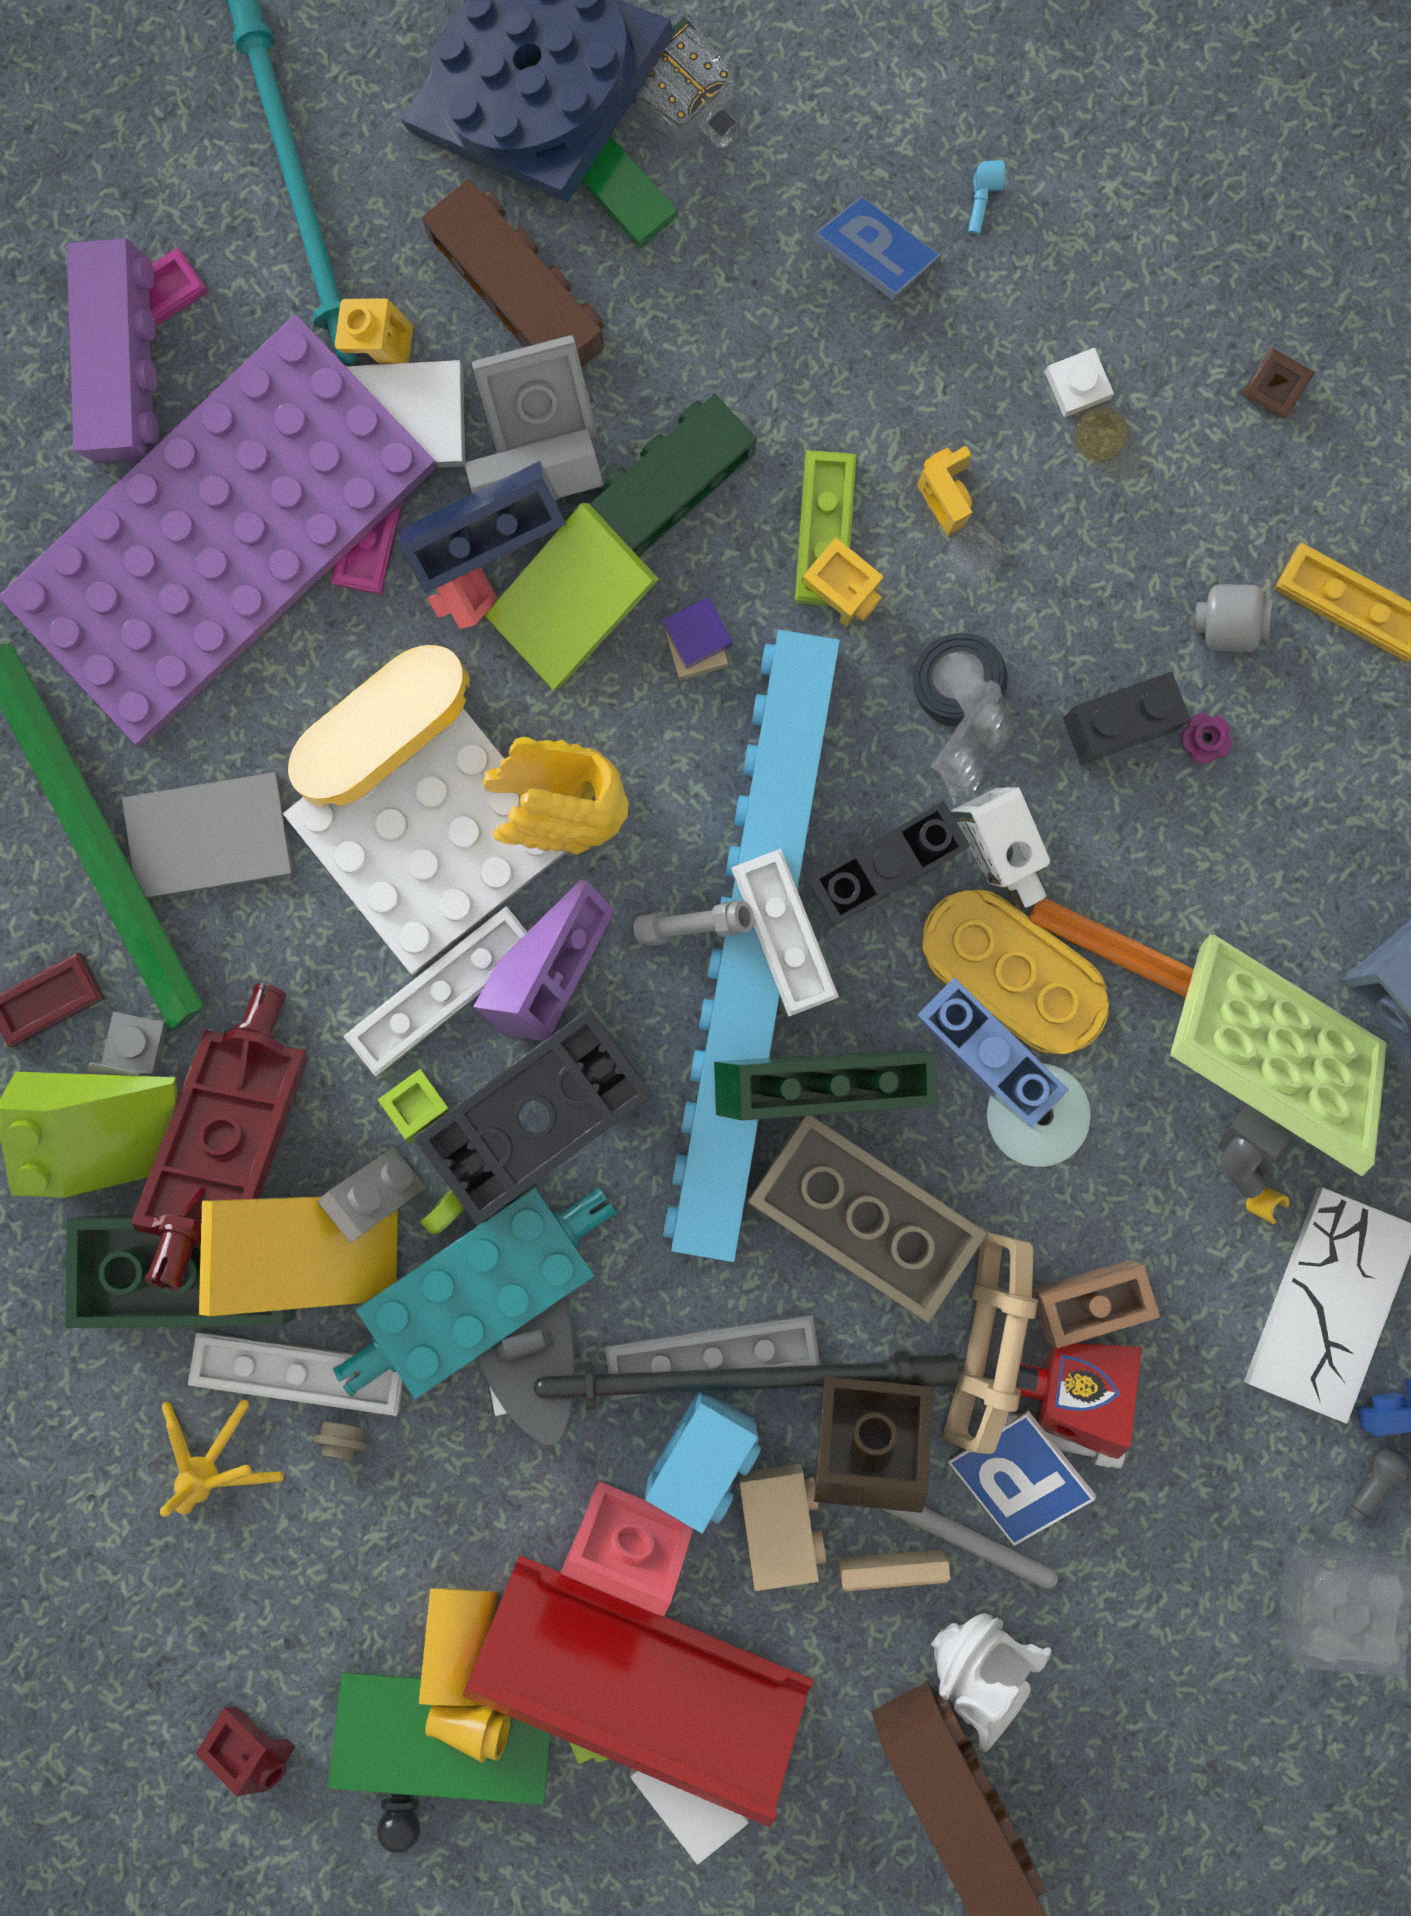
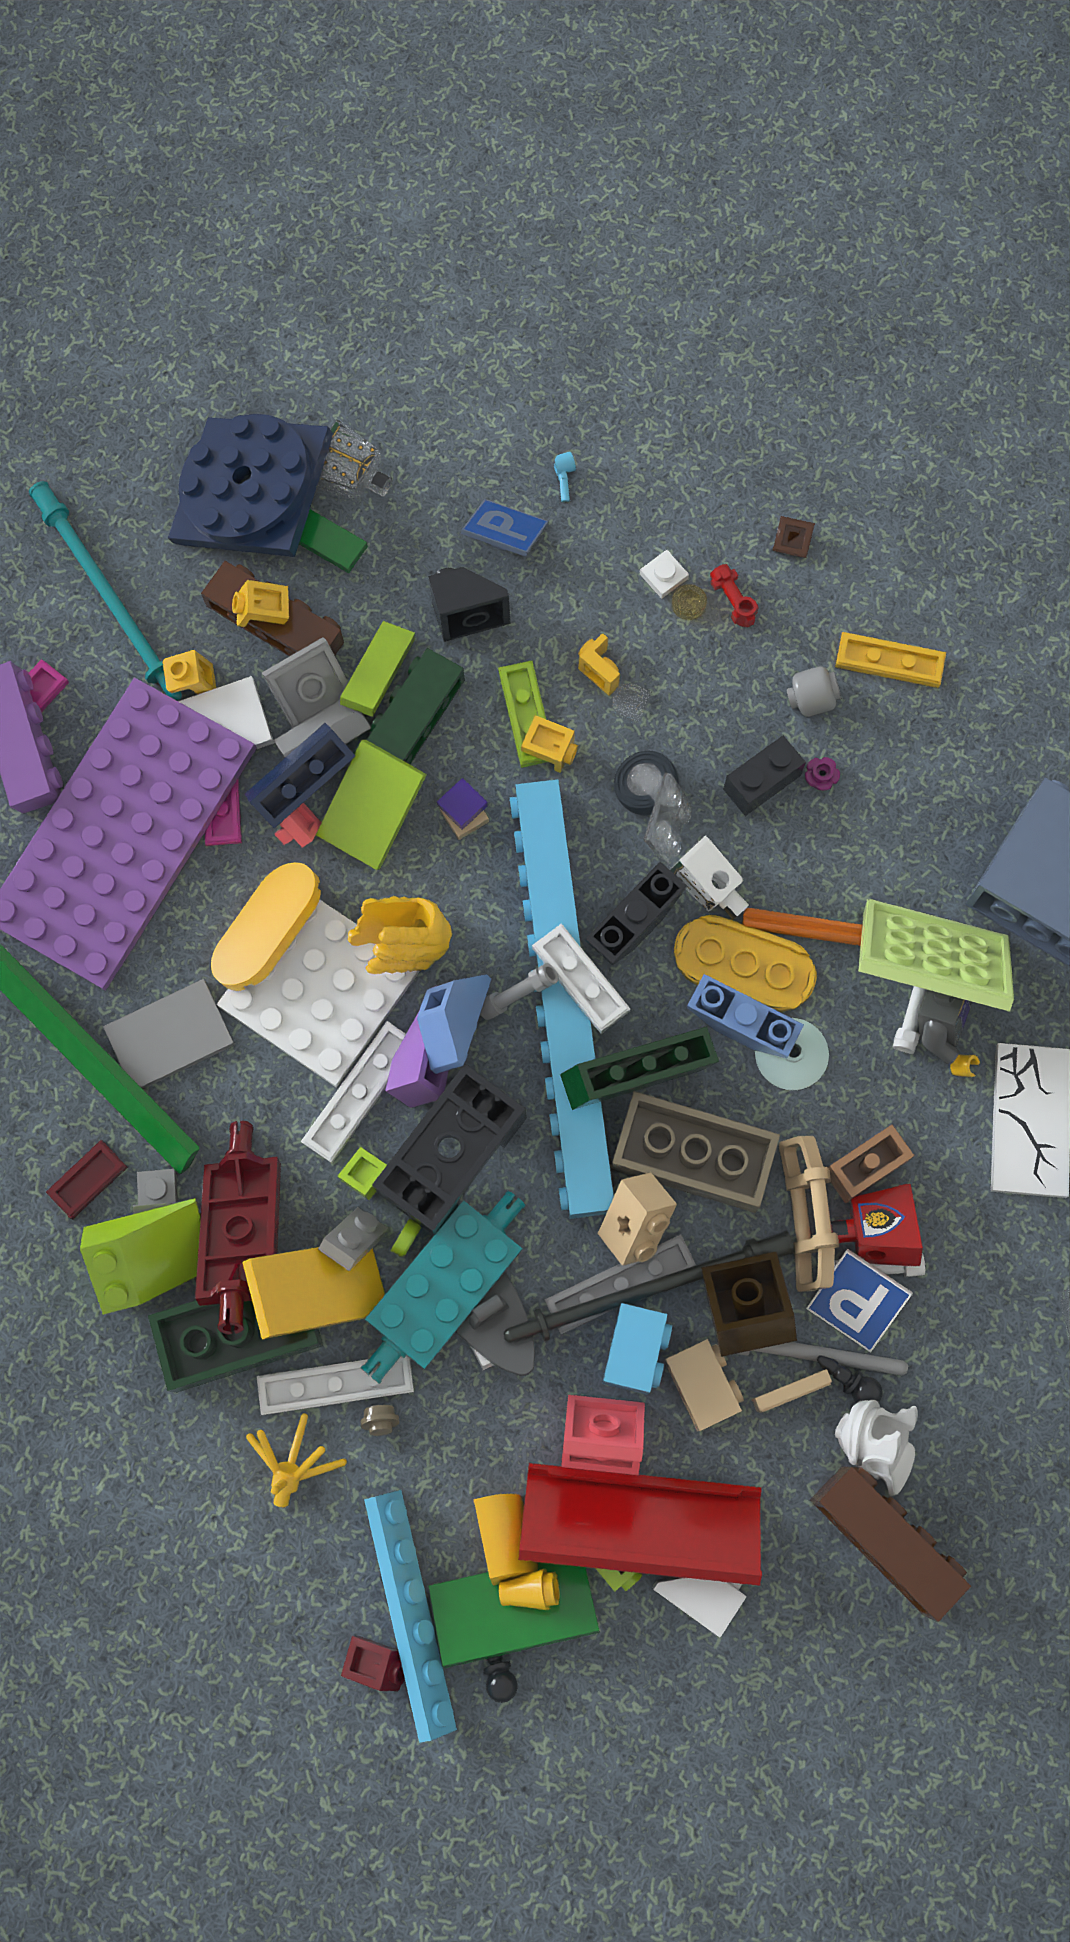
camera: 10 degrees left, 10 degrees down
(306, 1705) = (410, 1616): none -> medium azure plate
(500, 258) = (261, 603): none -> yellow bracket
(589, 937) = (450, 1019): none -> medium blue slope
(637, 402) = (377, 668): none -> lime tile
(759, 1287) = (637, 1219): none -> tan brick
(790, 343) = (467, 603): none -> black slope
(987, 1592) = (860, 1387): none -> black bar
(1176, 465) = (744, 607): none -> red bar
(1201, 1142) = (907, 1037): none -> white bar

